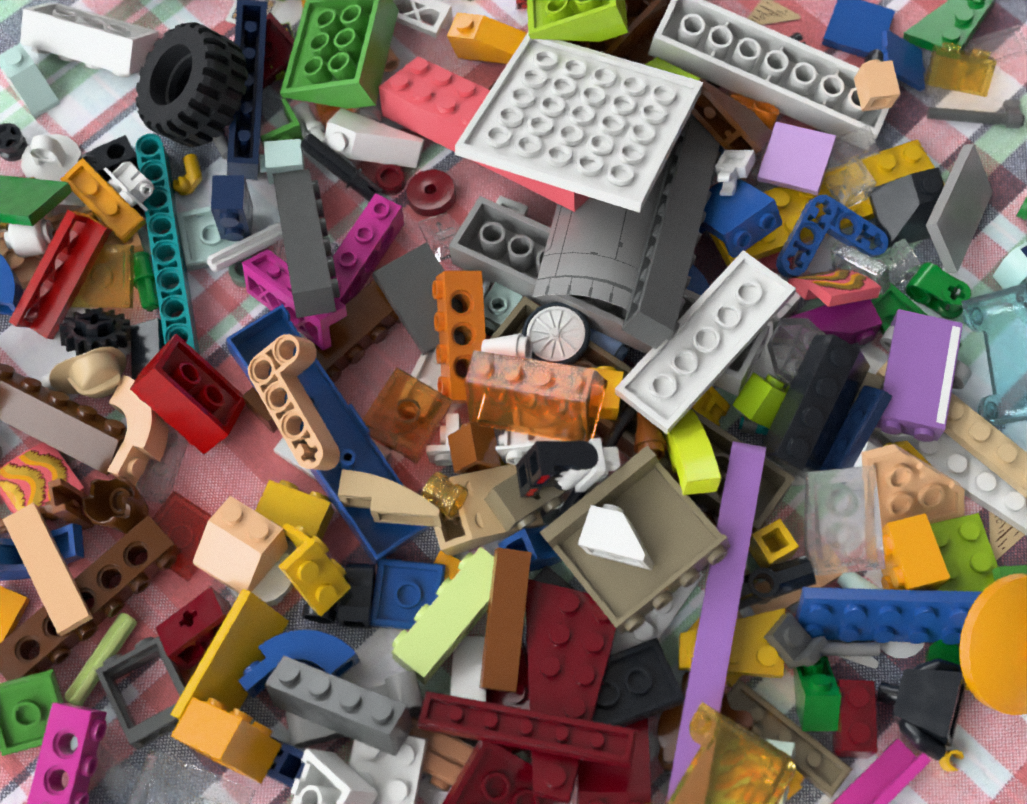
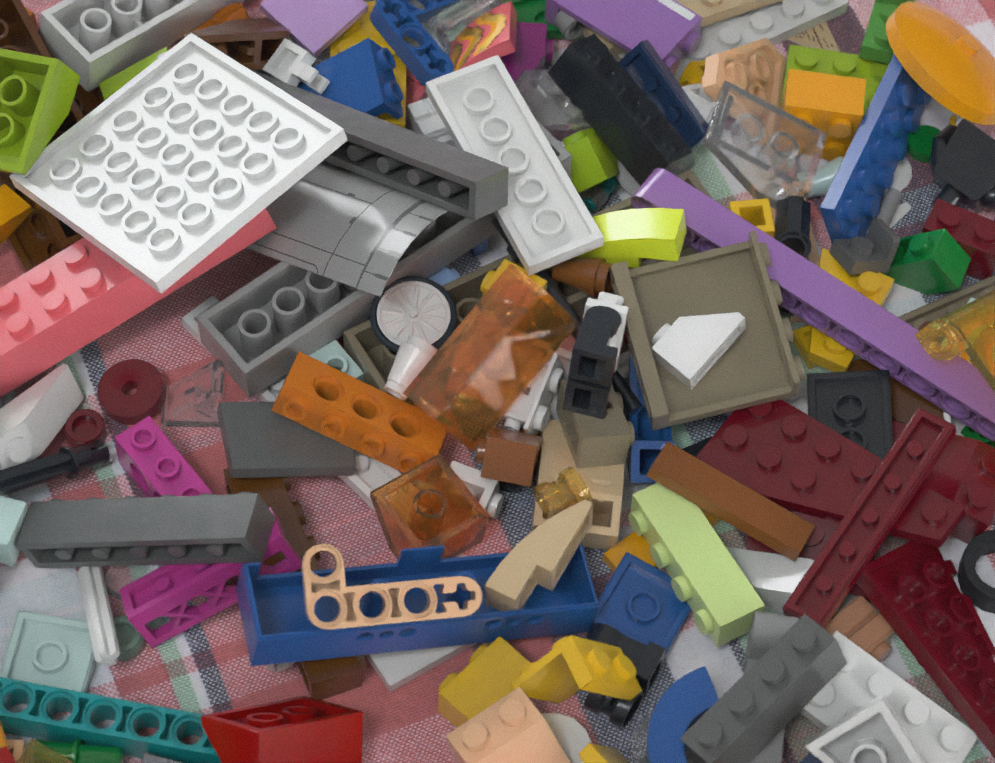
camera: 70 degrees left, 10 degrees down
(232, 207) = (47, 599): dark blue brick -> none

